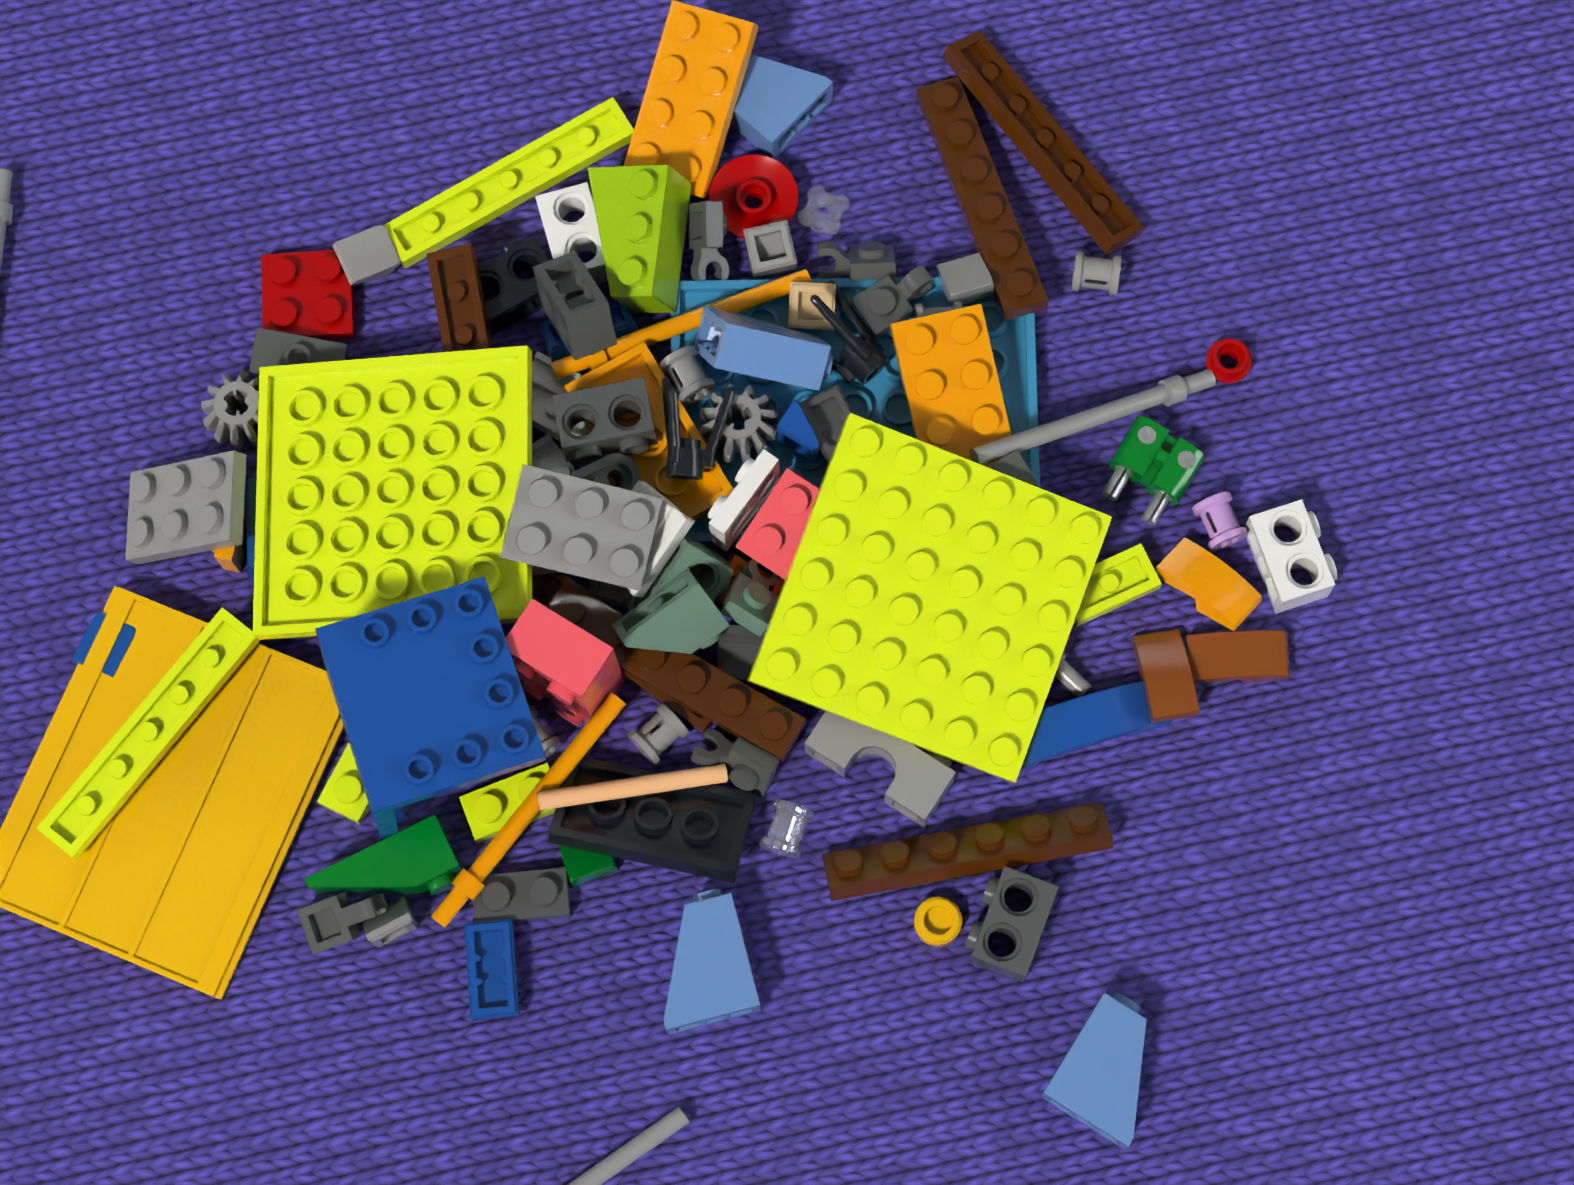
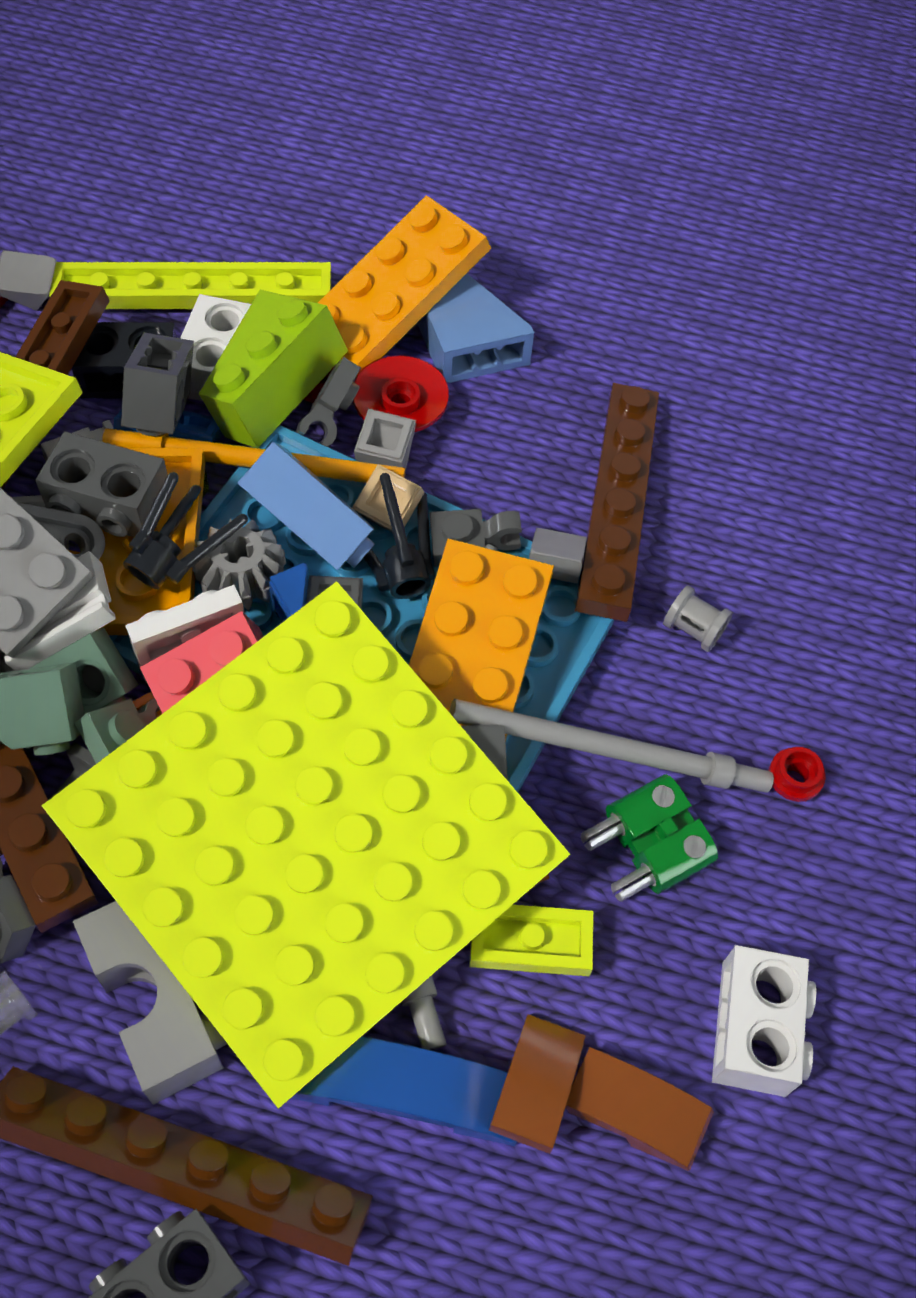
camera: 20 degrees right, 15 degrees down
(687, 375) = (222, 496): light grey bush -> none
(823, 223) = (453, 447): clear plate -> none
(866, 262) = (462, 494): dark grey plate -> none
(937, 921) = (86, 1234): yellow tile -> none
(1043, 142) = (712, 487): reddish brown plate -> none
(1211, 582) = (652, 1003): light orange slope -> none
(1220, 521) = (698, 936): lavender bush -> none

